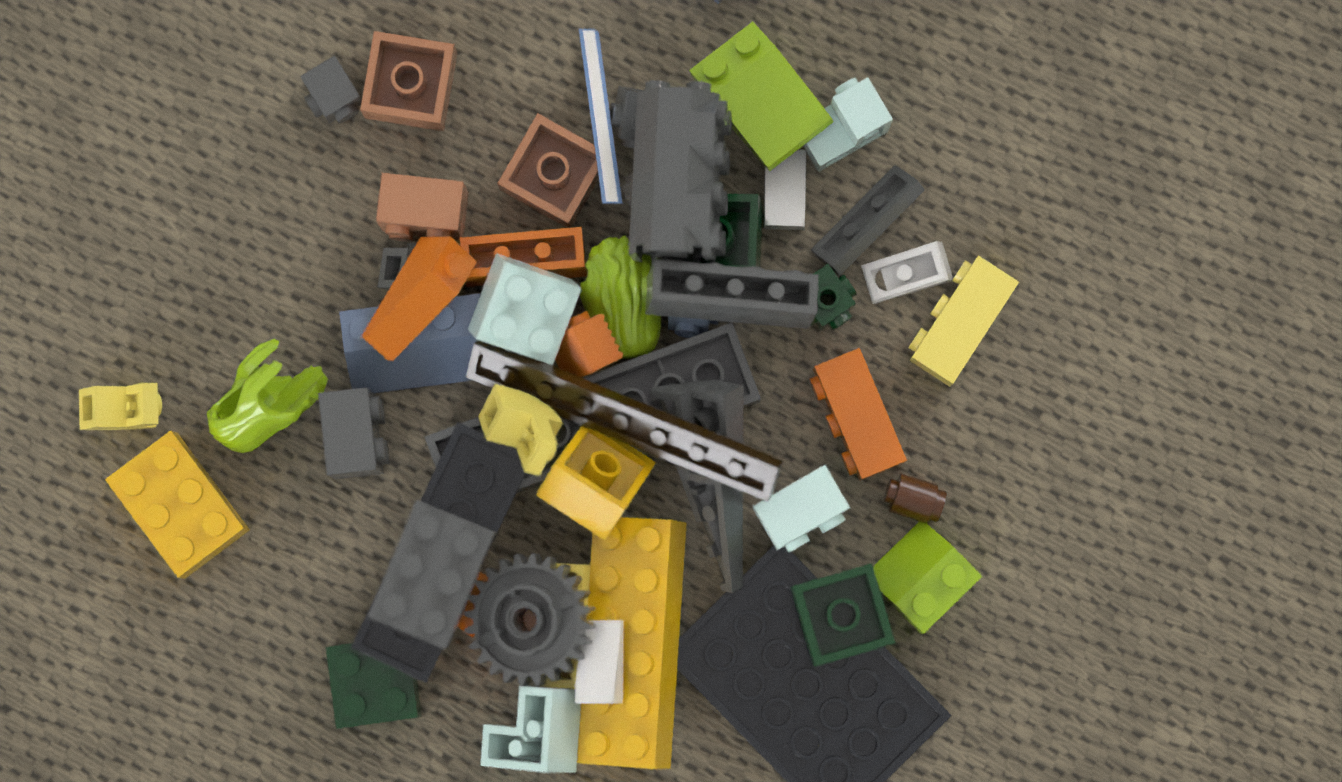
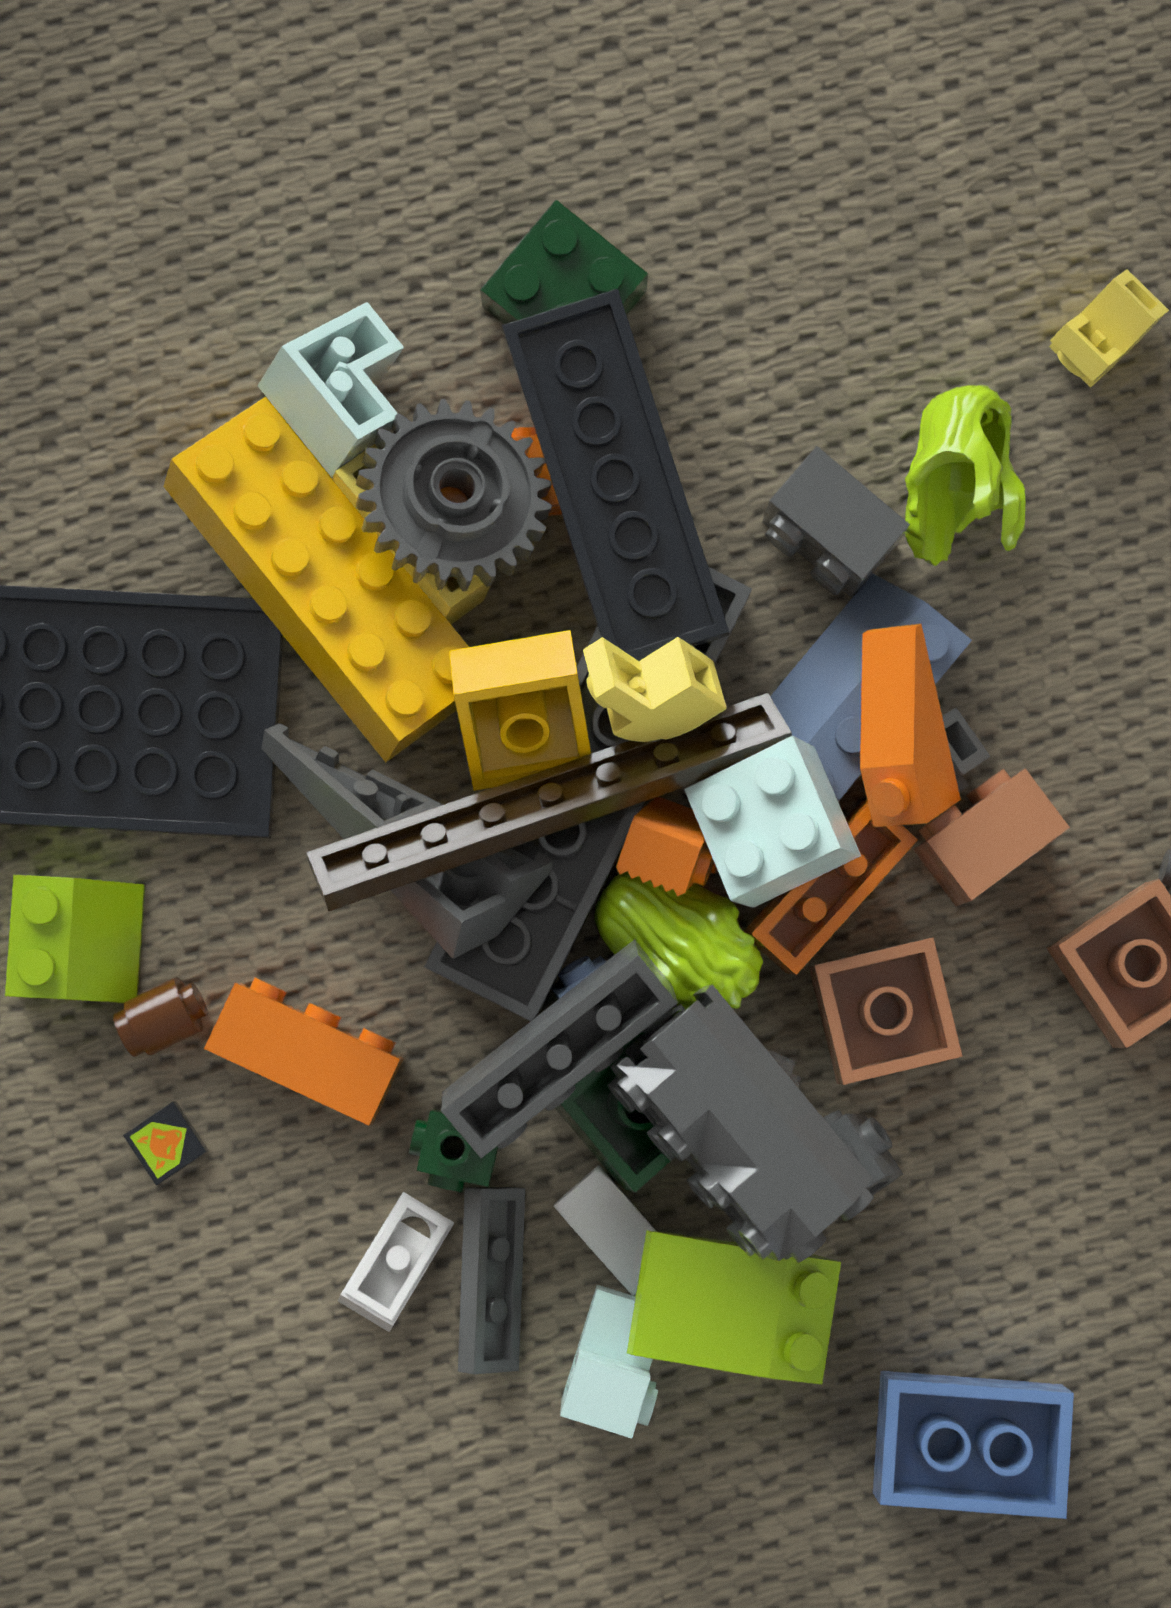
camera: 135 degrees right, 0 degrees up
(177, 504) = (948, 283): yellow brick -> none
(432, 574) = (600, 437): dark grey brick -> none
(600, 117) = (889, 1118): sticker -> none
(601, 671) = (325, 511): white slope -> none
(802, 508) = (268, 887): light aqua brick -> none
(842, 615) = (118, 812): dark green brick -> none
(962, 319) = (285, 1264): light yellow brick -> none
(969, 435) = (165, 1143): none -> tile

